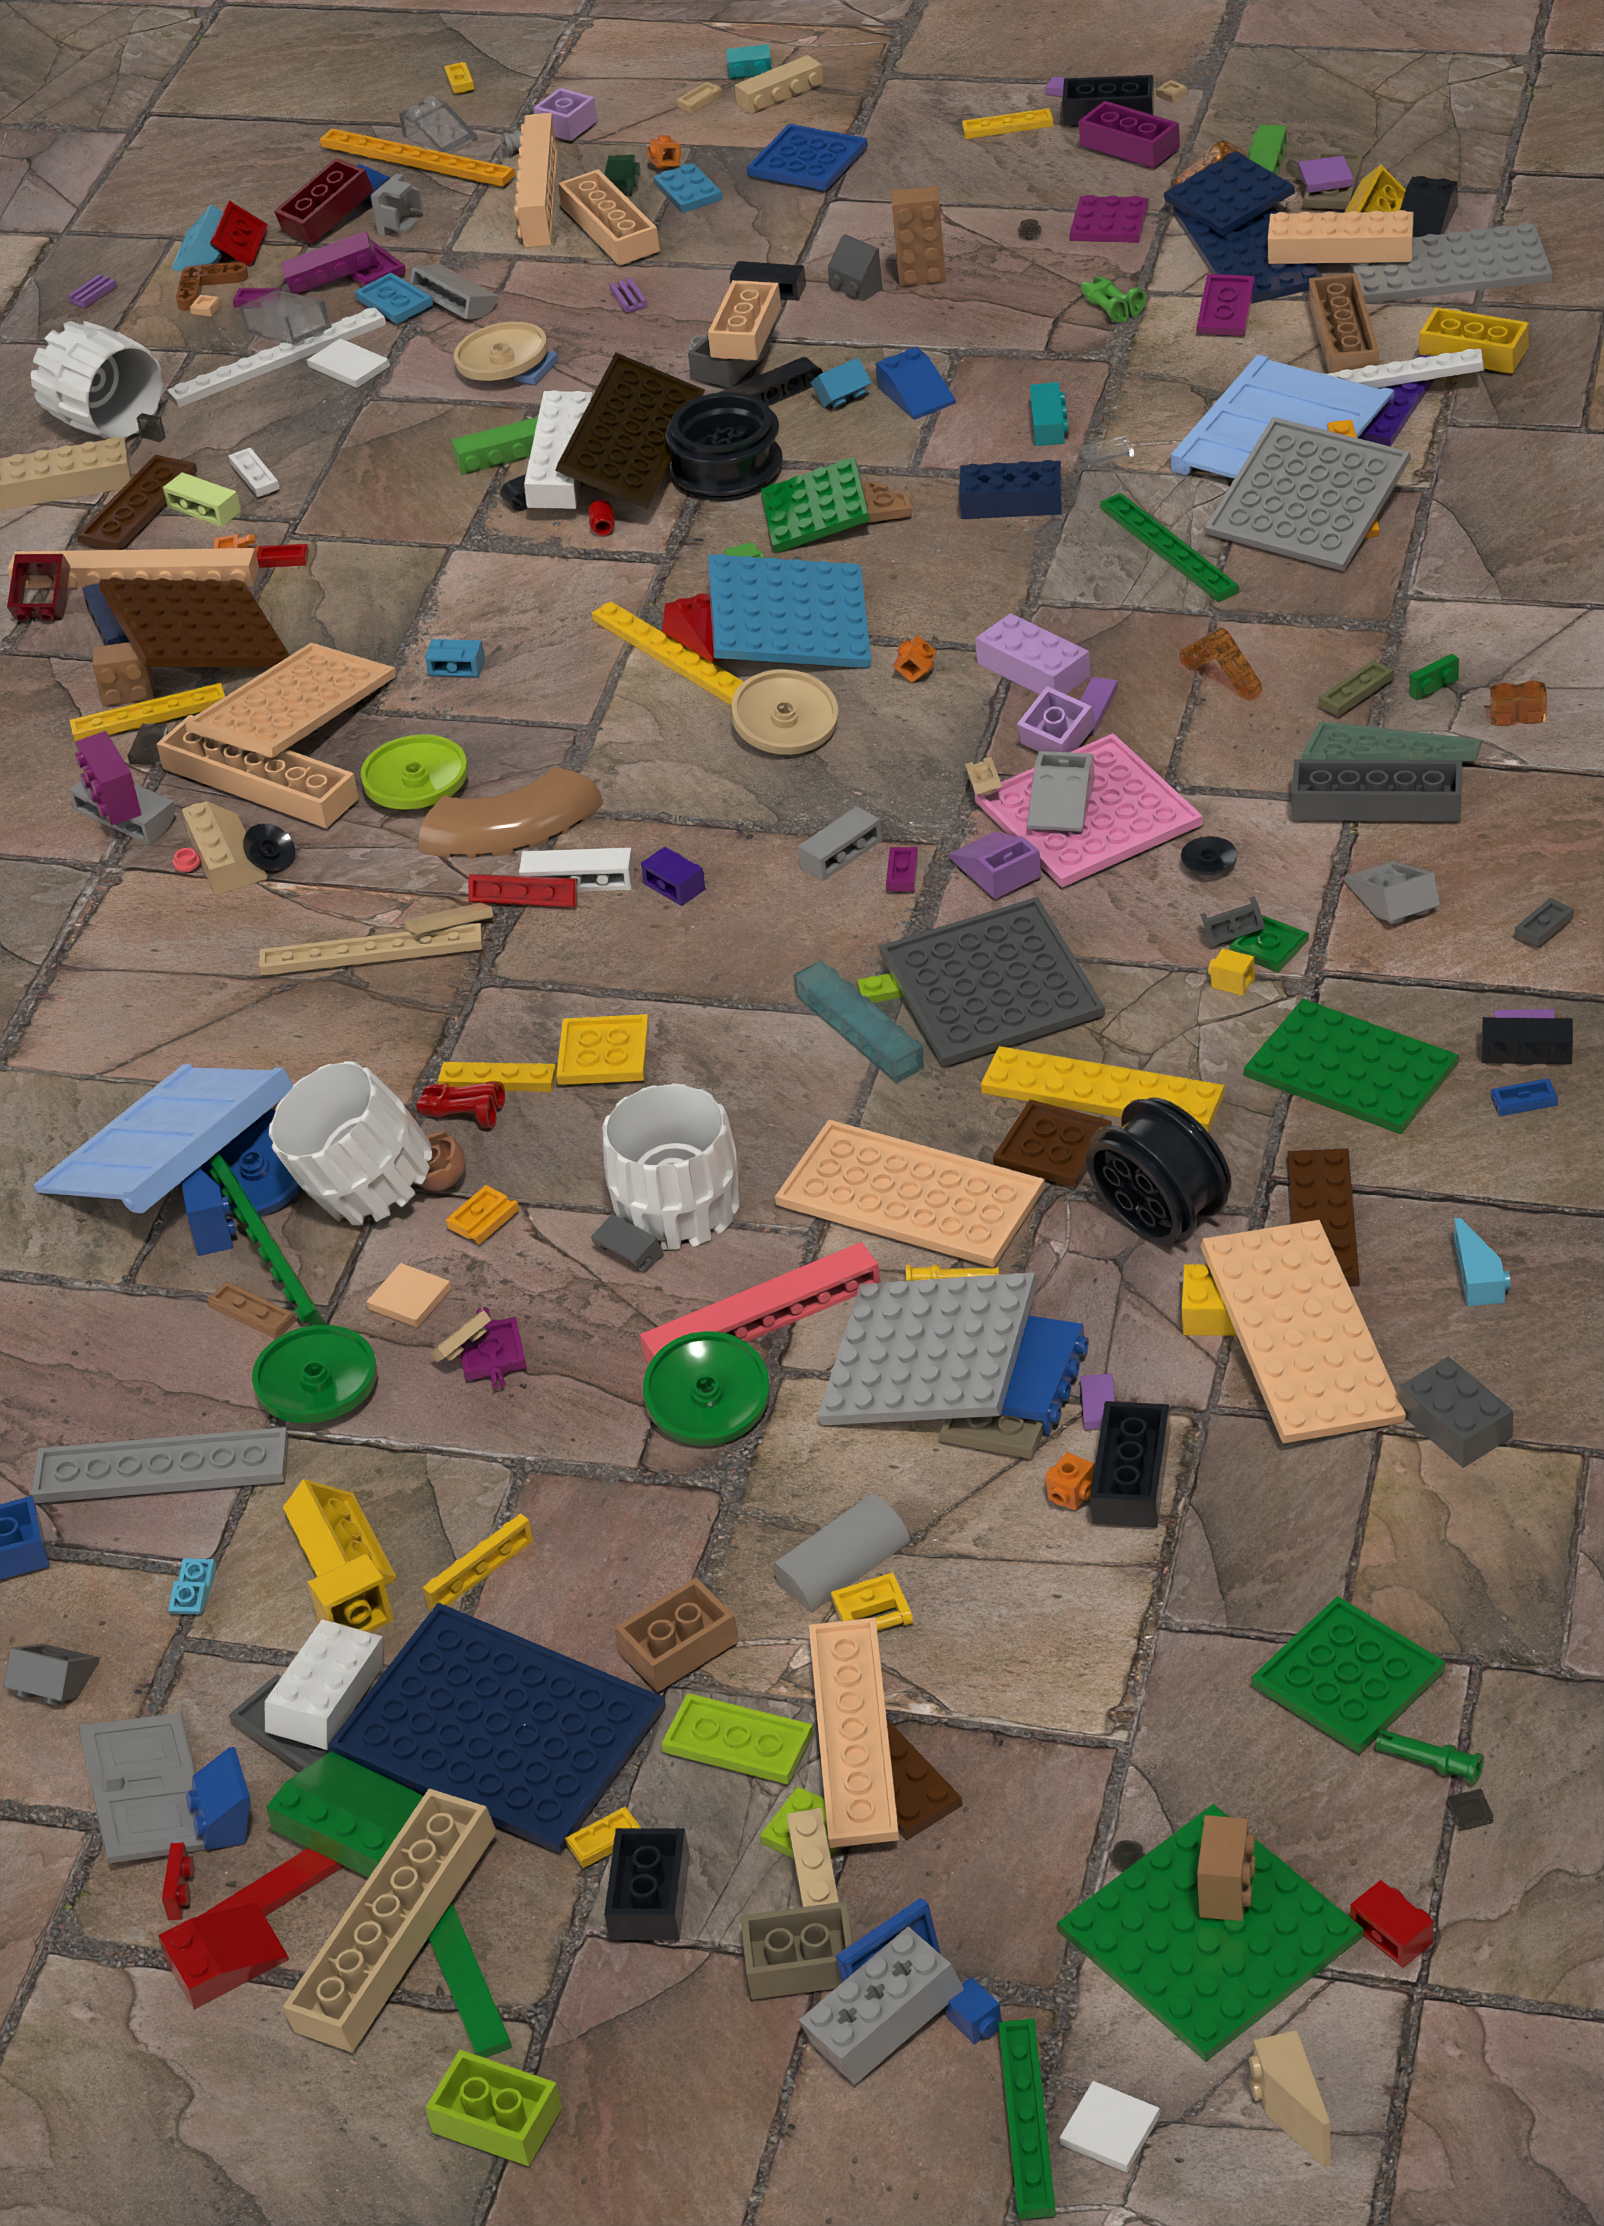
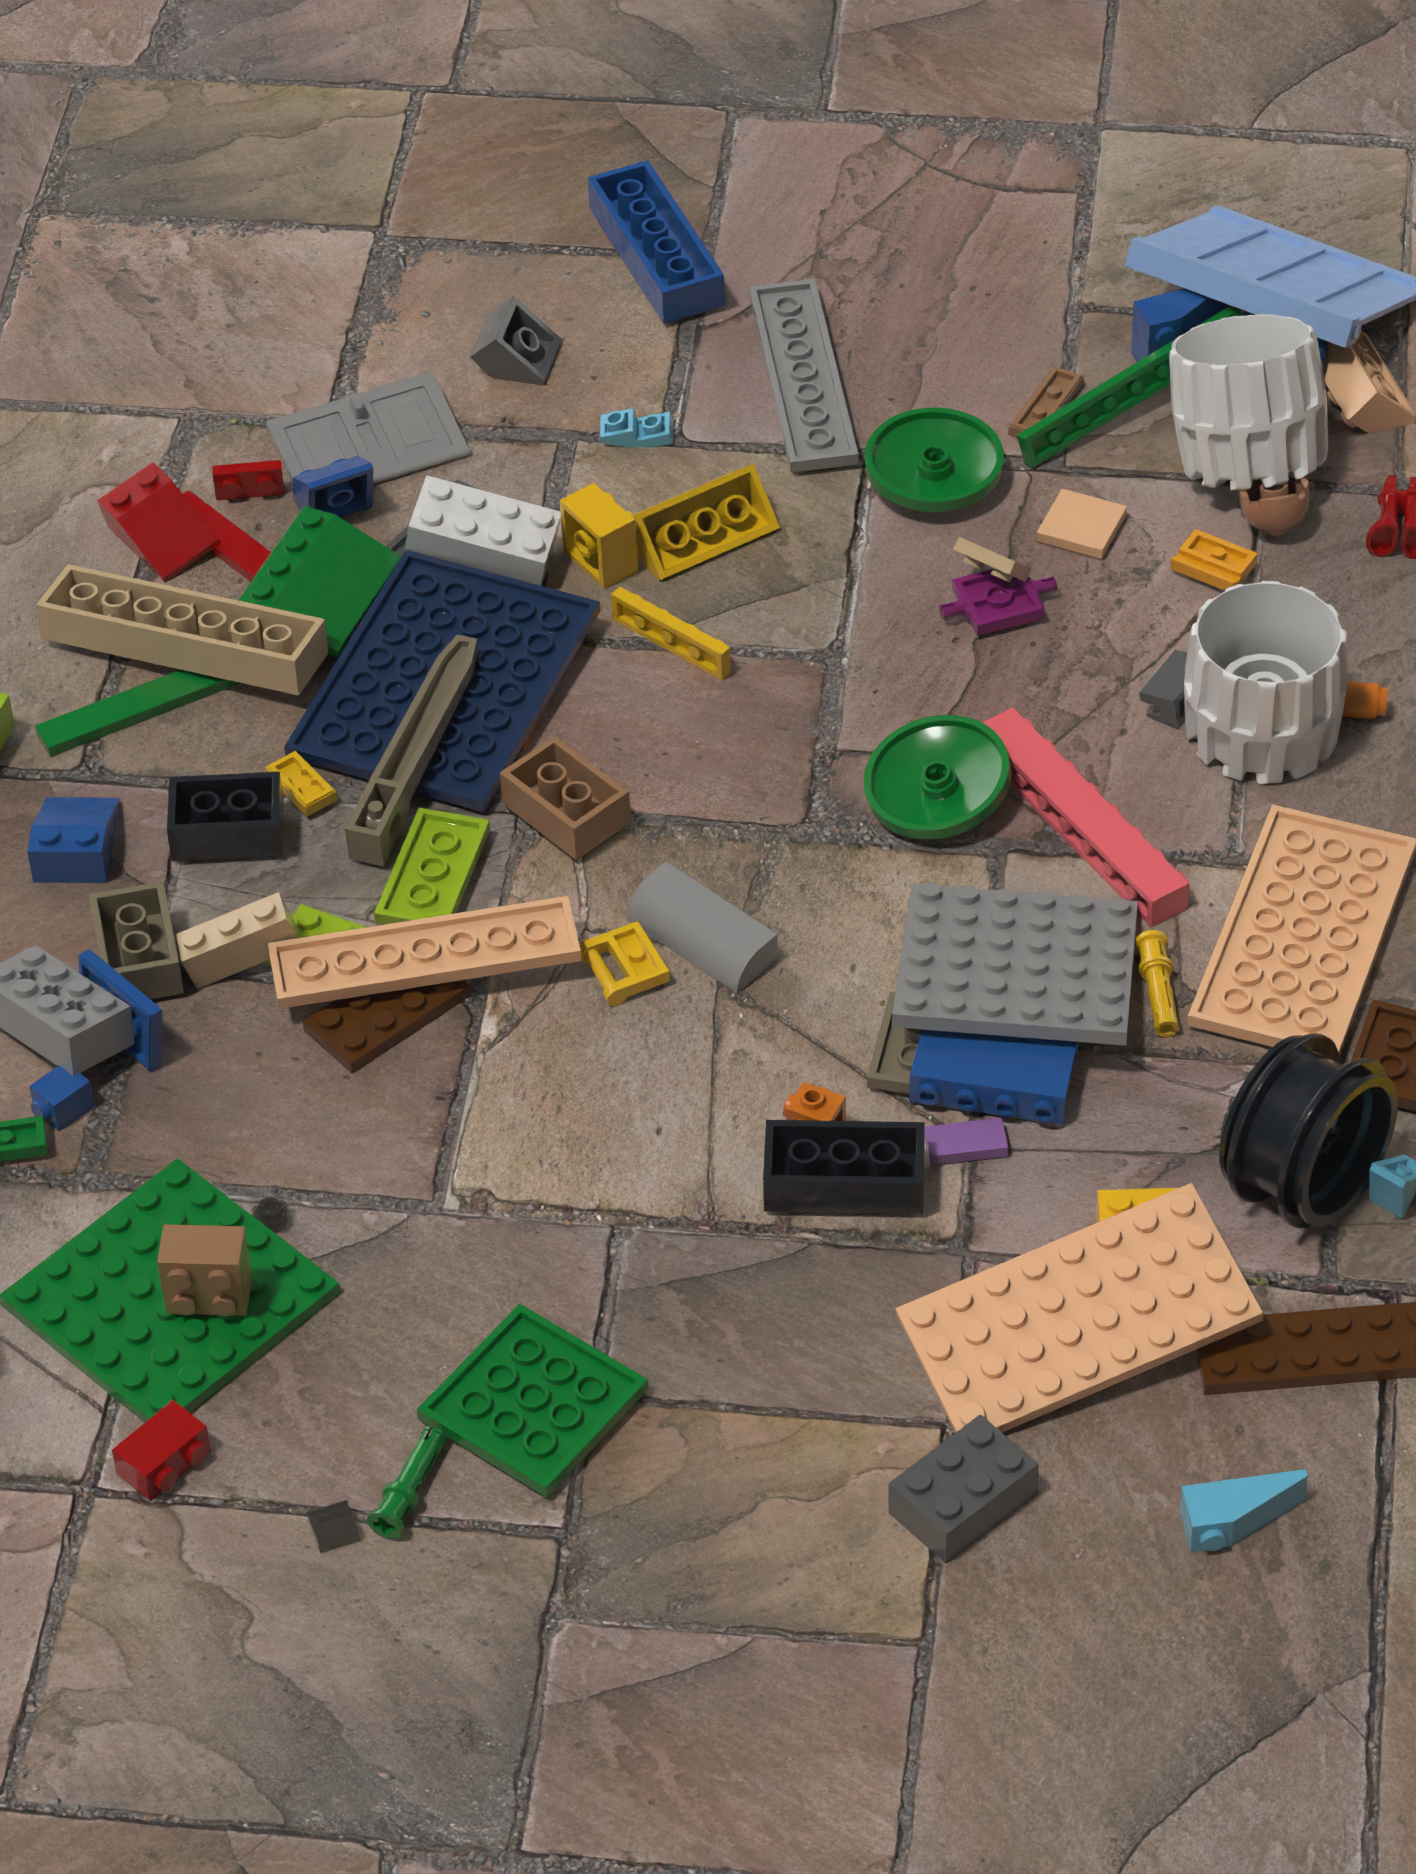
camera: 80 degrees right, 5 degrees up
(635, 2013) = (73, 839): none -> blue slope
(658, 1759) = (387, 796): none -> dark tan piece

